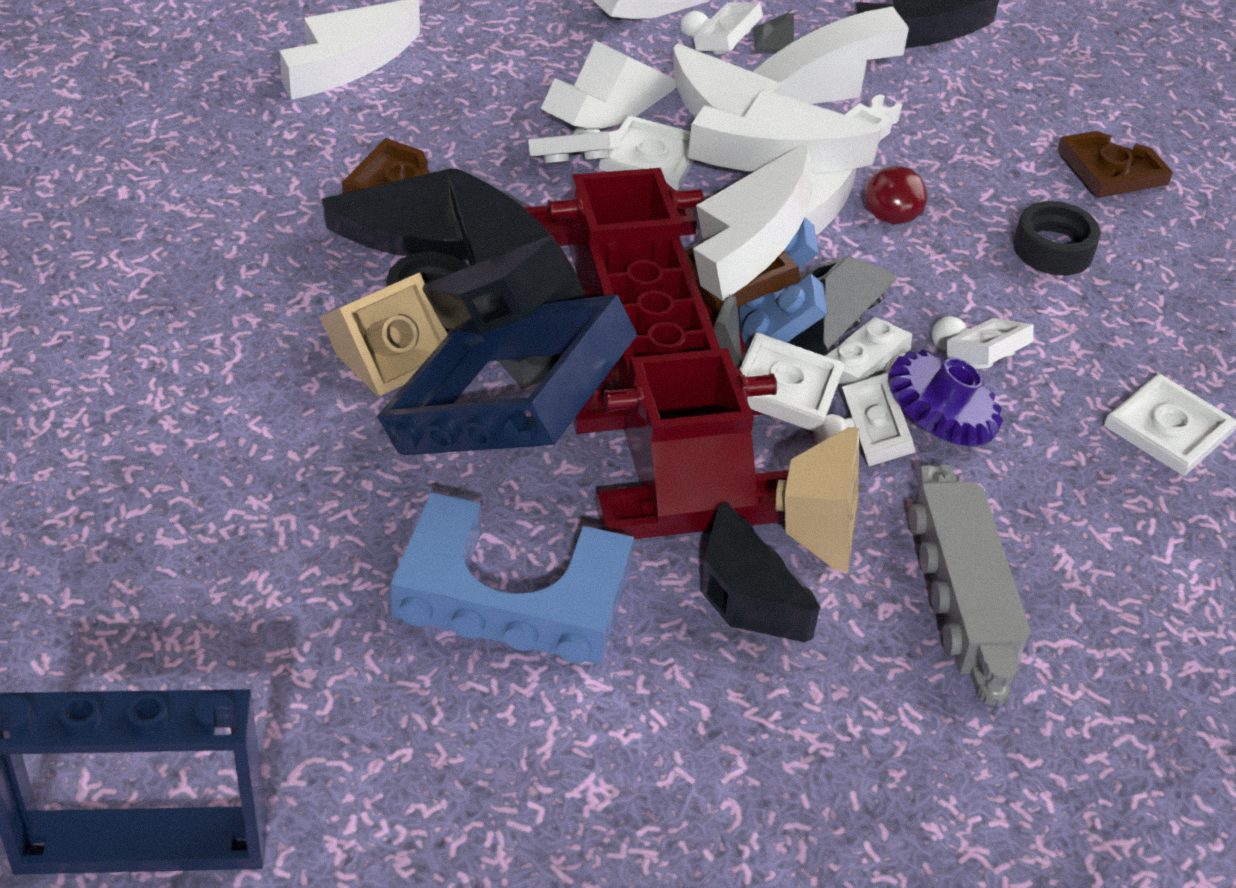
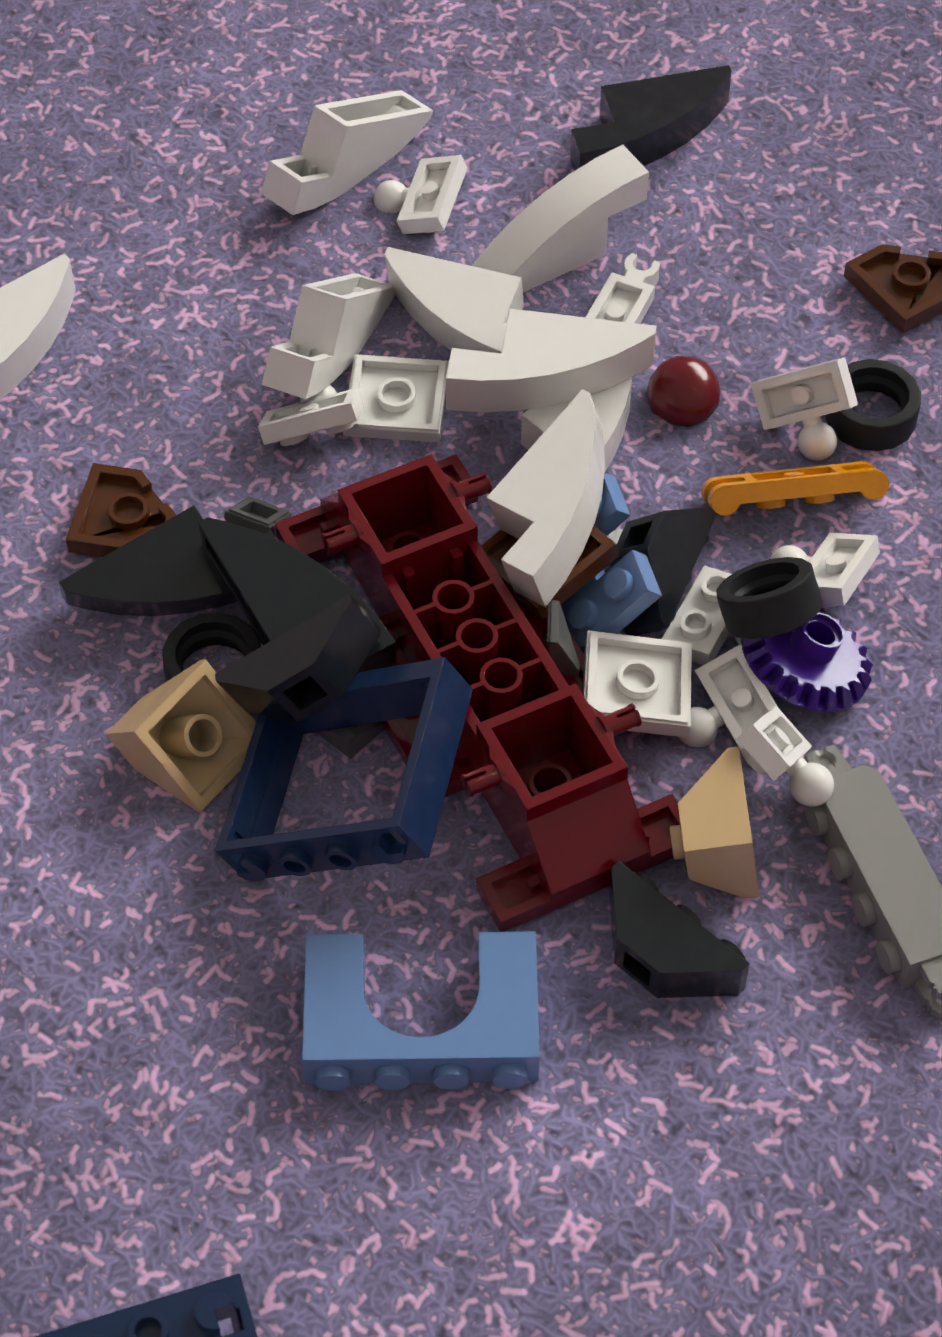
camera: 10 degrees left, 10 degrees up
(774, 34) = (487, 191): dark grey slope -> none
(894, 443) = (776, 747): none -> white plate
(922, 339) = (769, 598): none -> black tyre
(989, 279) = (814, 483): none -> light orange plate
(996, 214) = (806, 397): none -> white plate

